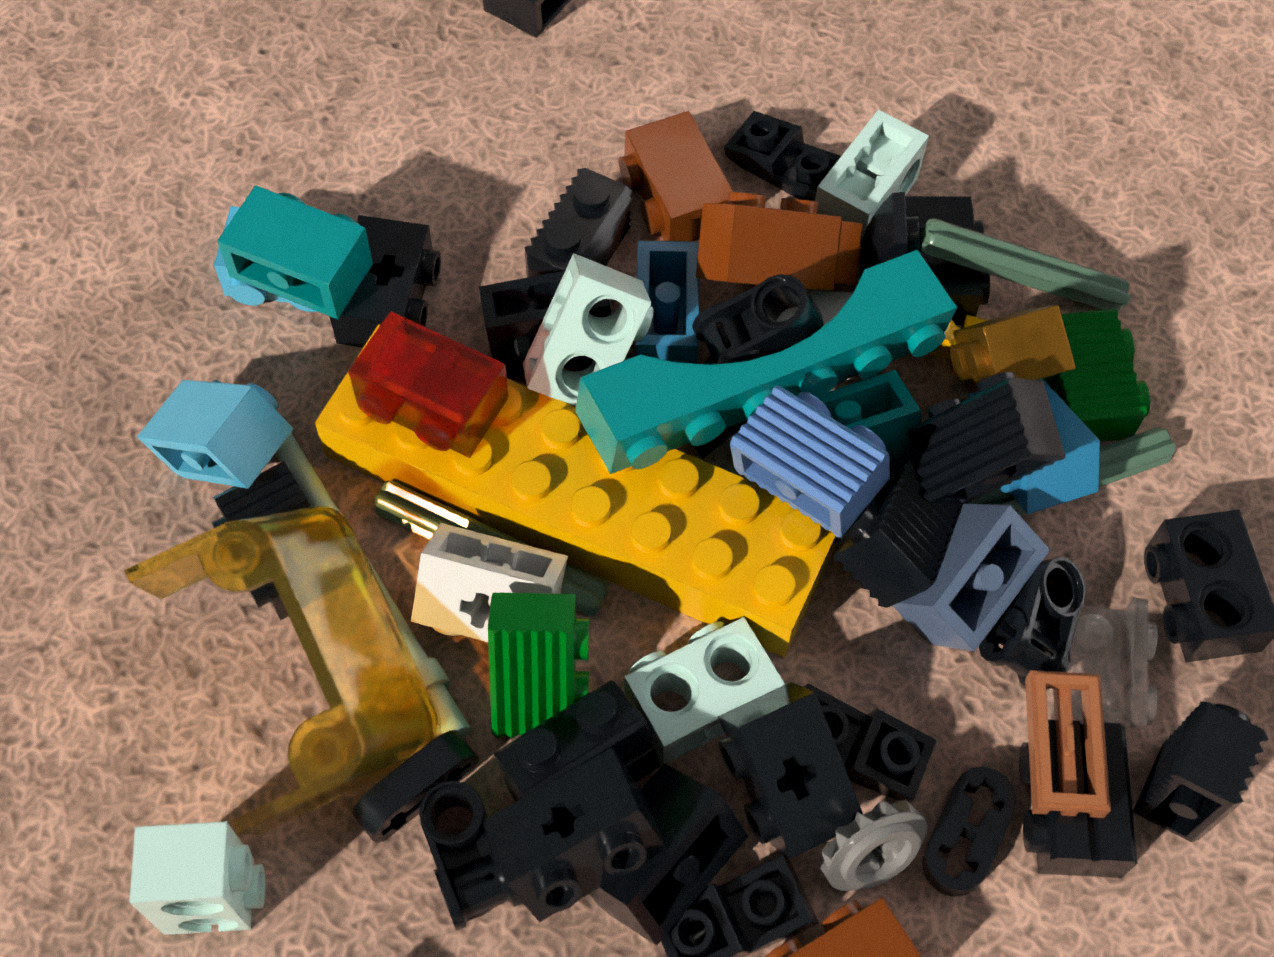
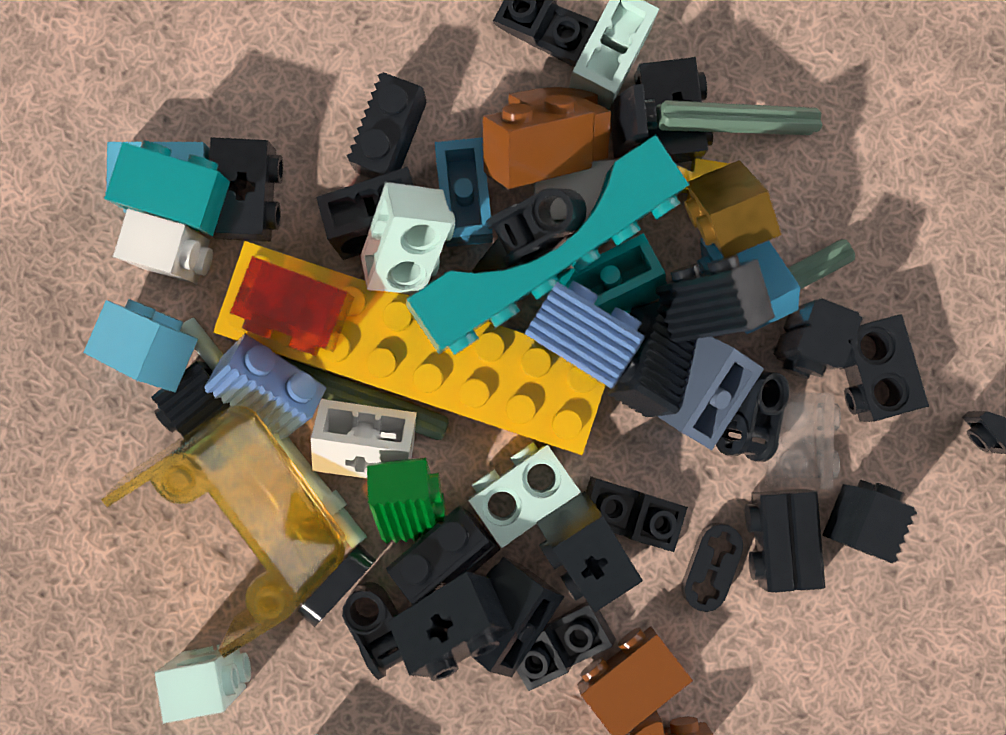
camera: 10 degrees left, 25 degrees up
(273, 323) = (163, 247): none -> white brick
(374, 493) = (266, 384): none -> medium blue brick
(673, 175) = (459, 61): dark orange brick -> none
(874, 846) = (649, 595): light grey gear -> none
(1068, 800) = (758, 515): nougat tile -> none
(1103, 384) = (797, 199): green brick -> none
(1124, 522) = (817, 338): none -> black brick

